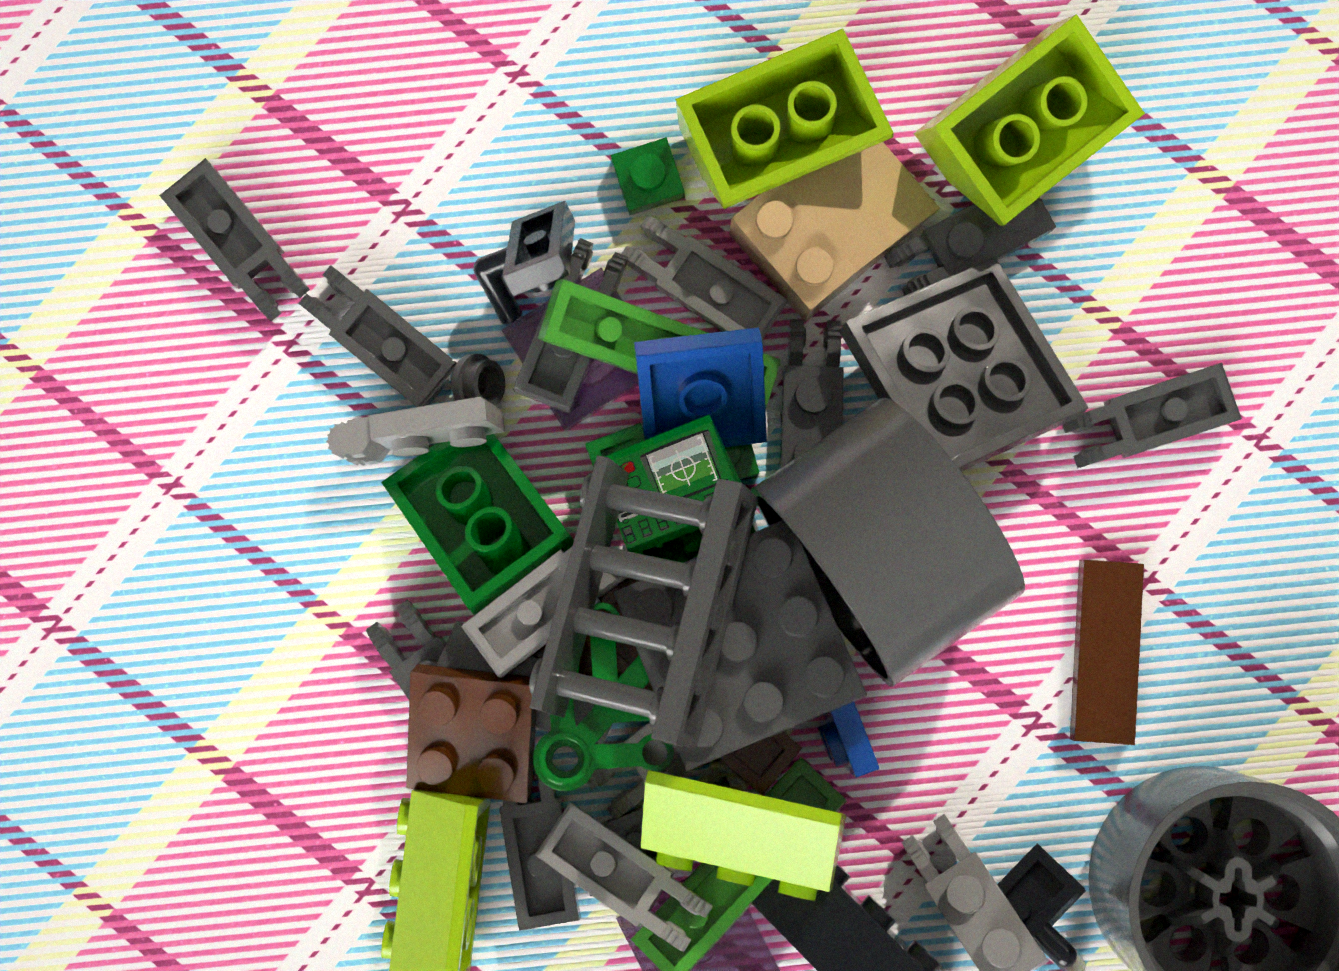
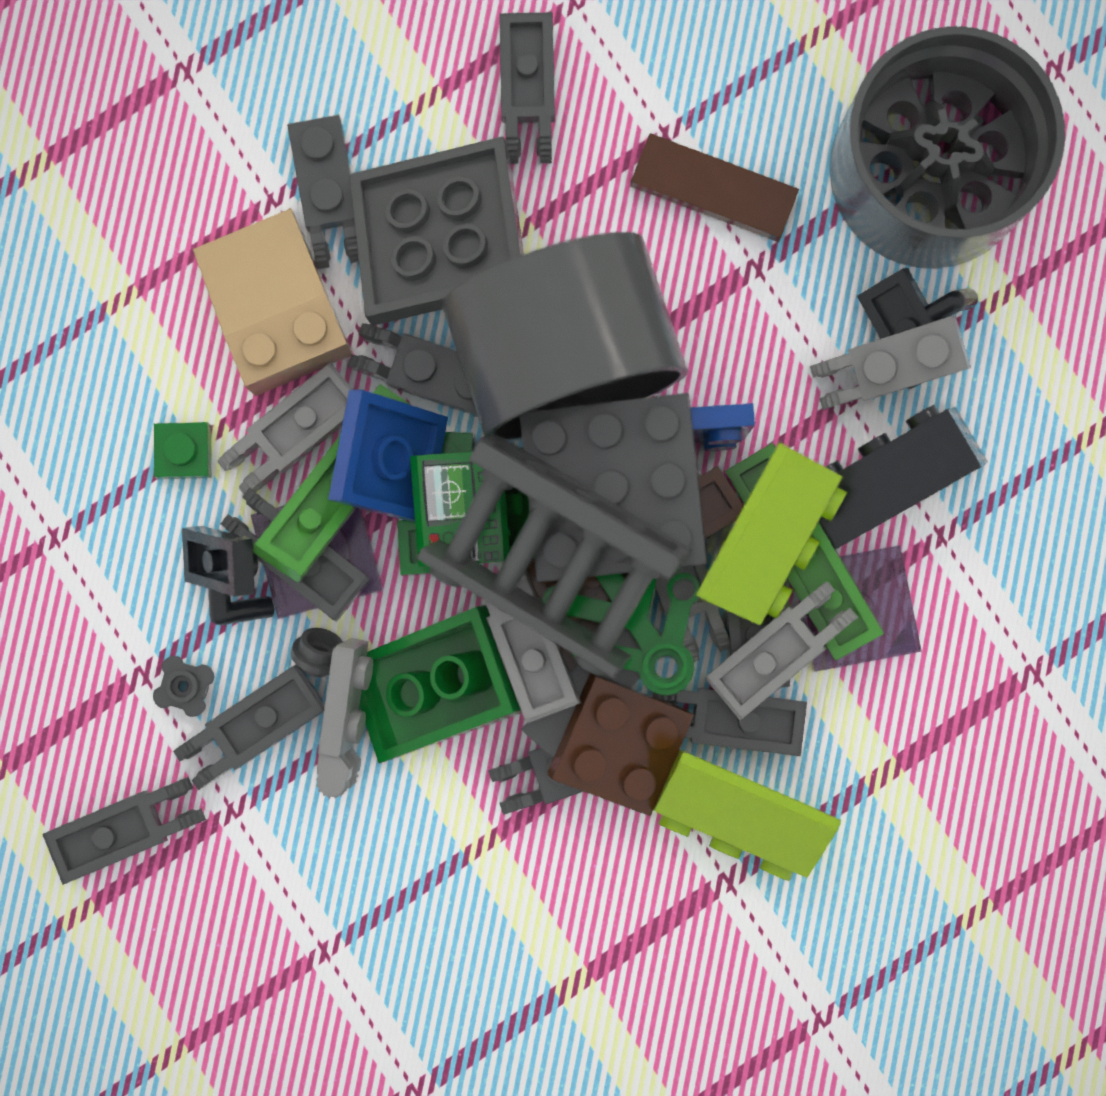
camera: 75 degrees left, 0 degrees up
(413, 267) = (197, 678): none -> dark grey plate
(781, 119) = (173, 318): lime slope -> none
(1030, 121) = (241, 107): lime slope -> none

